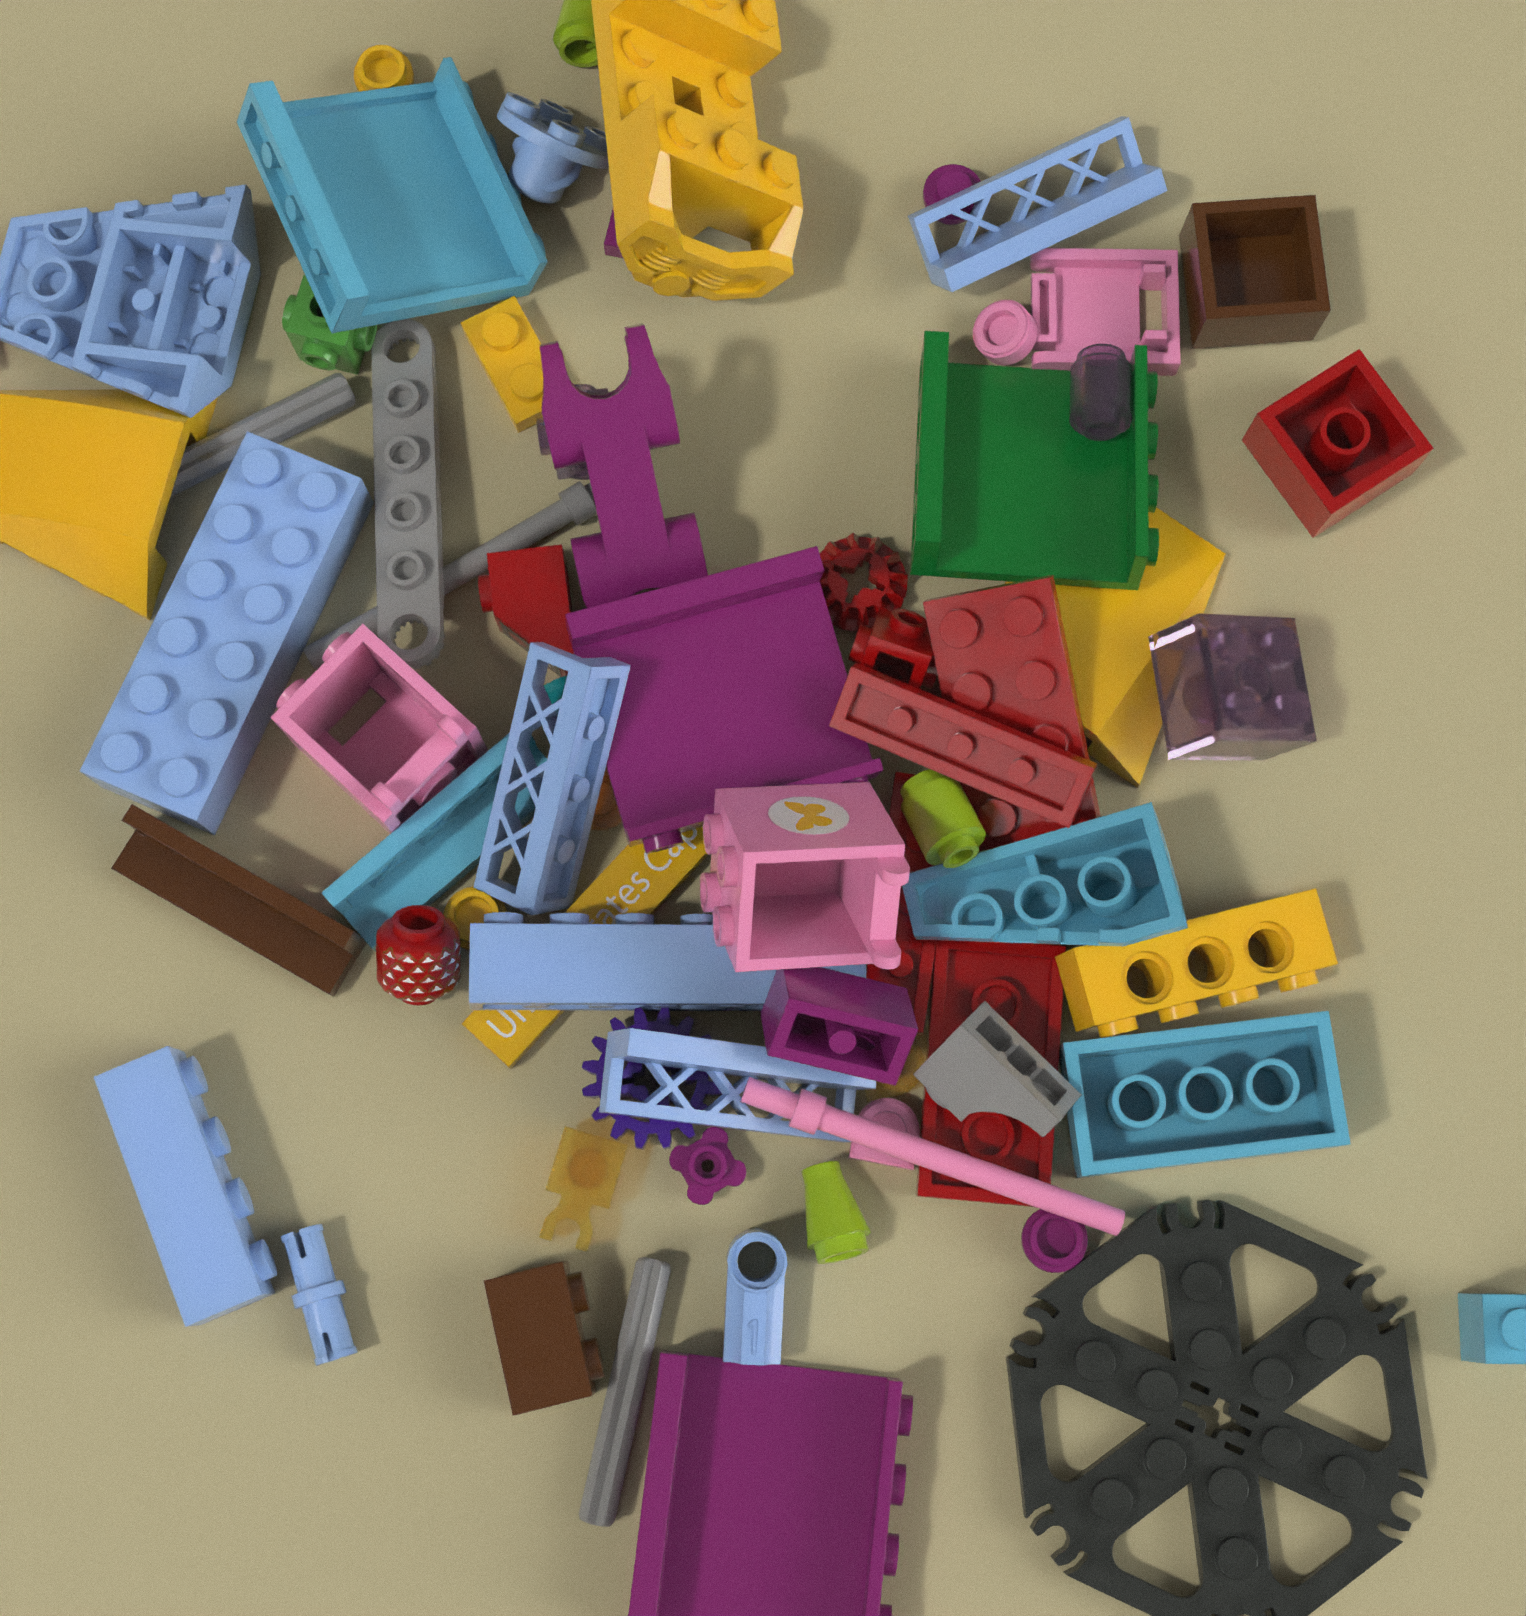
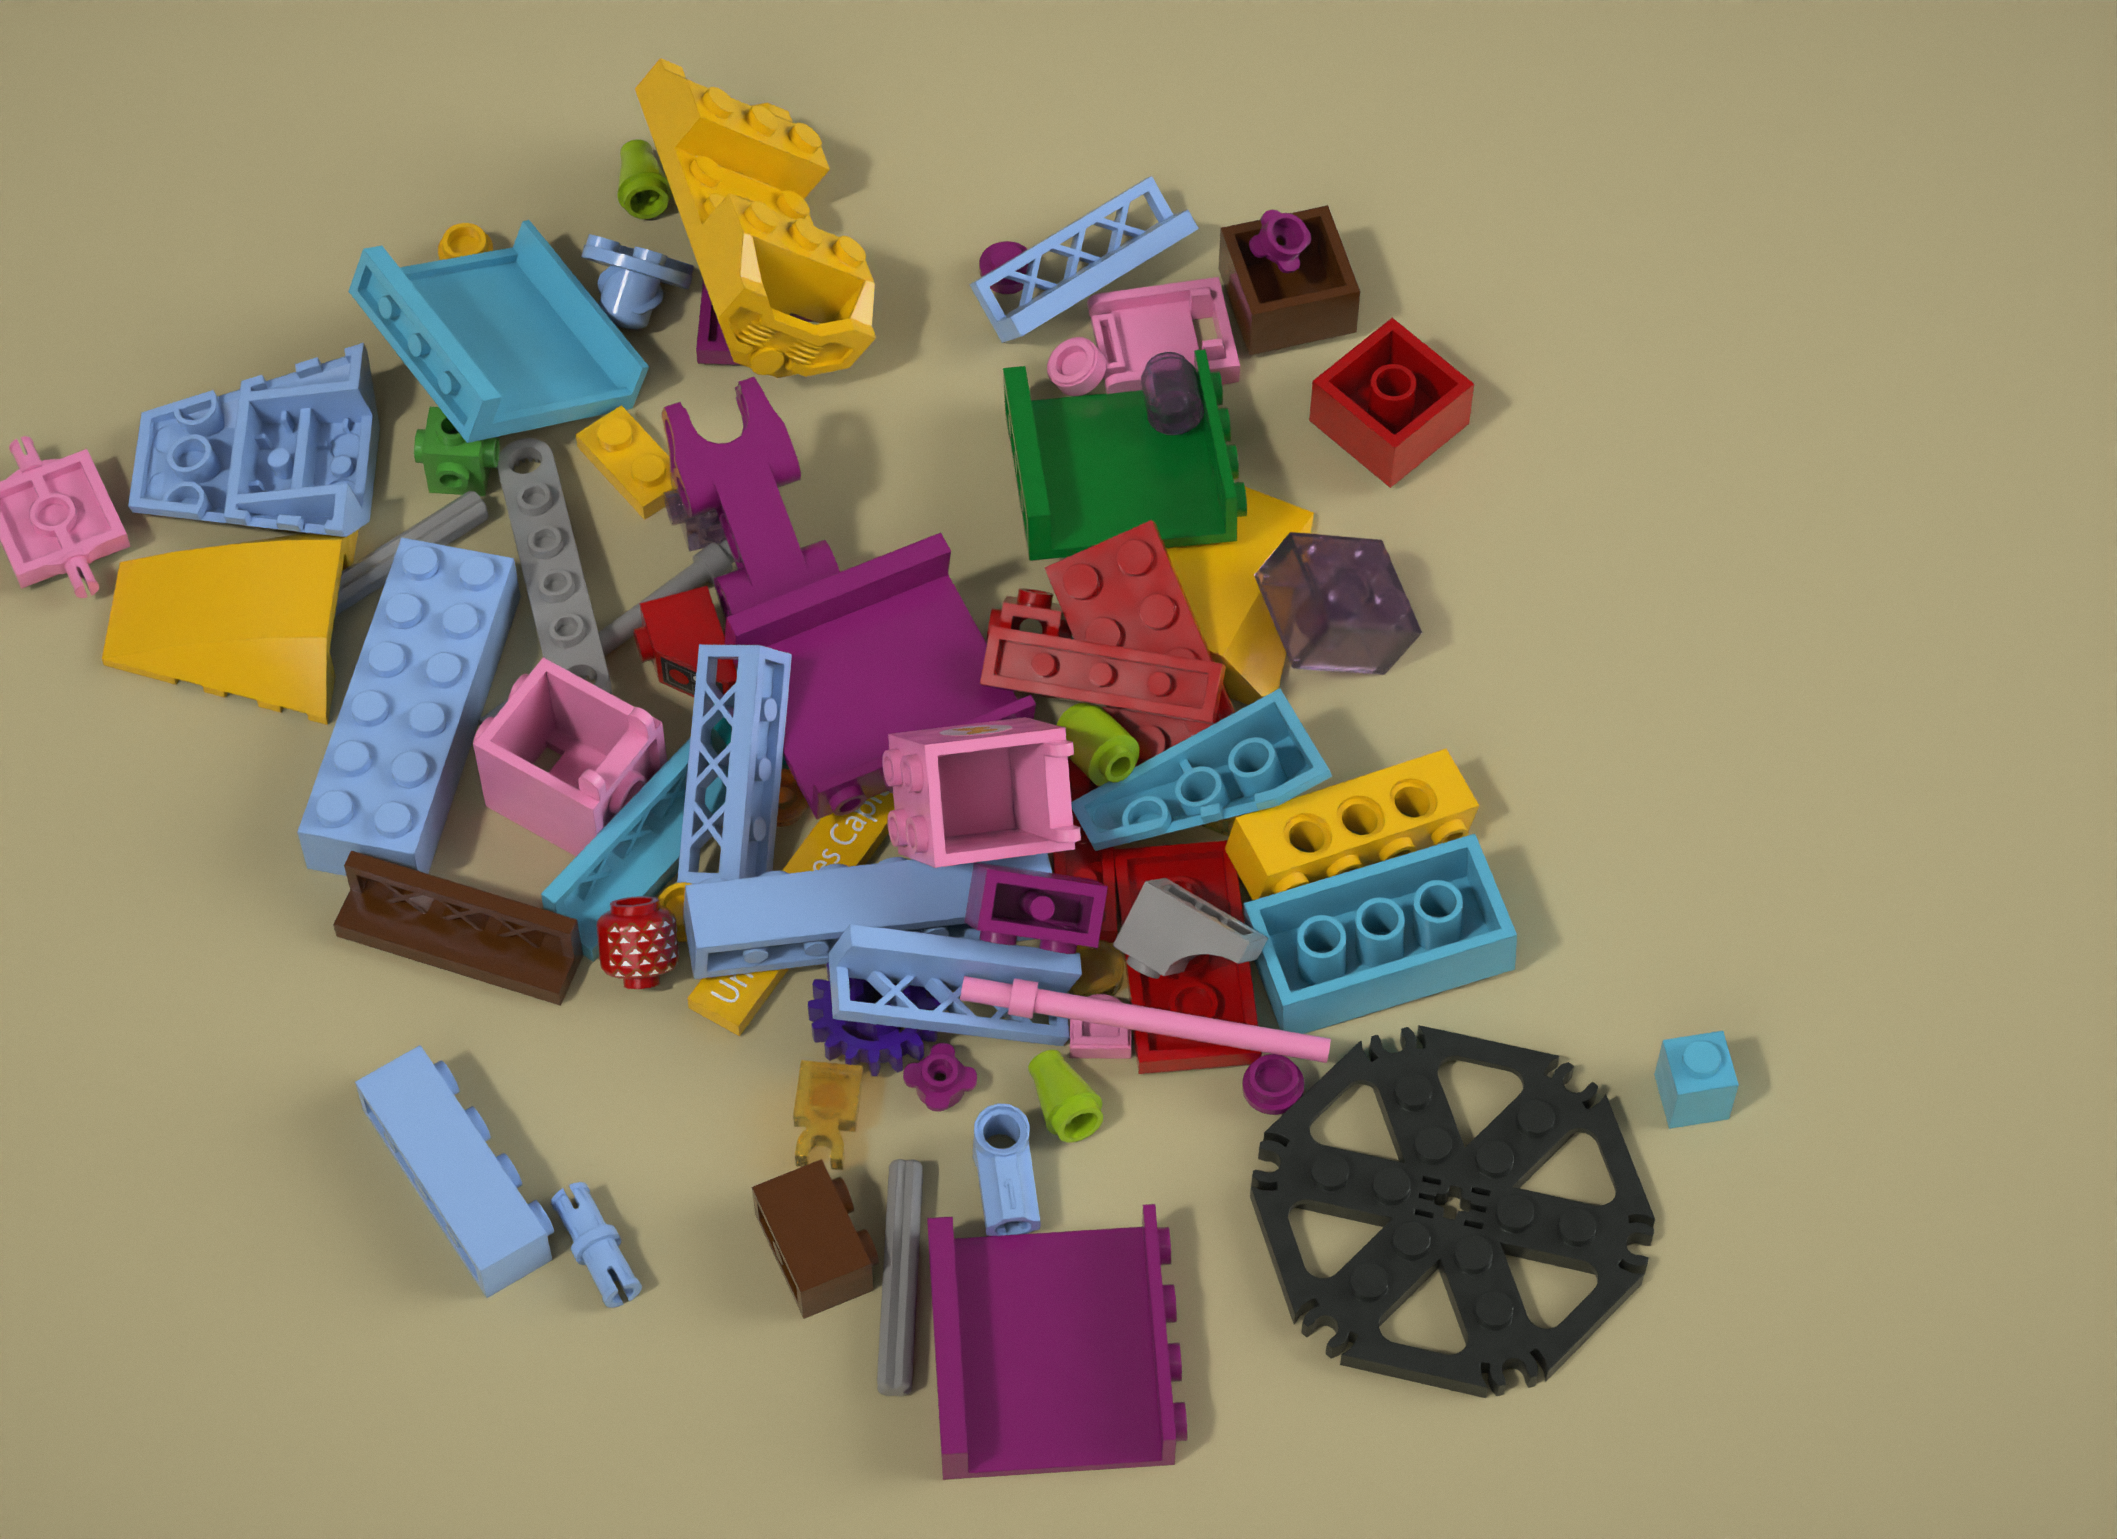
camera: 10 degrees left, 20 degrees down
(884, 571) = (1006, 580): red gear -> none
(1271, 228) = (1290, 231): none -> magenta plate

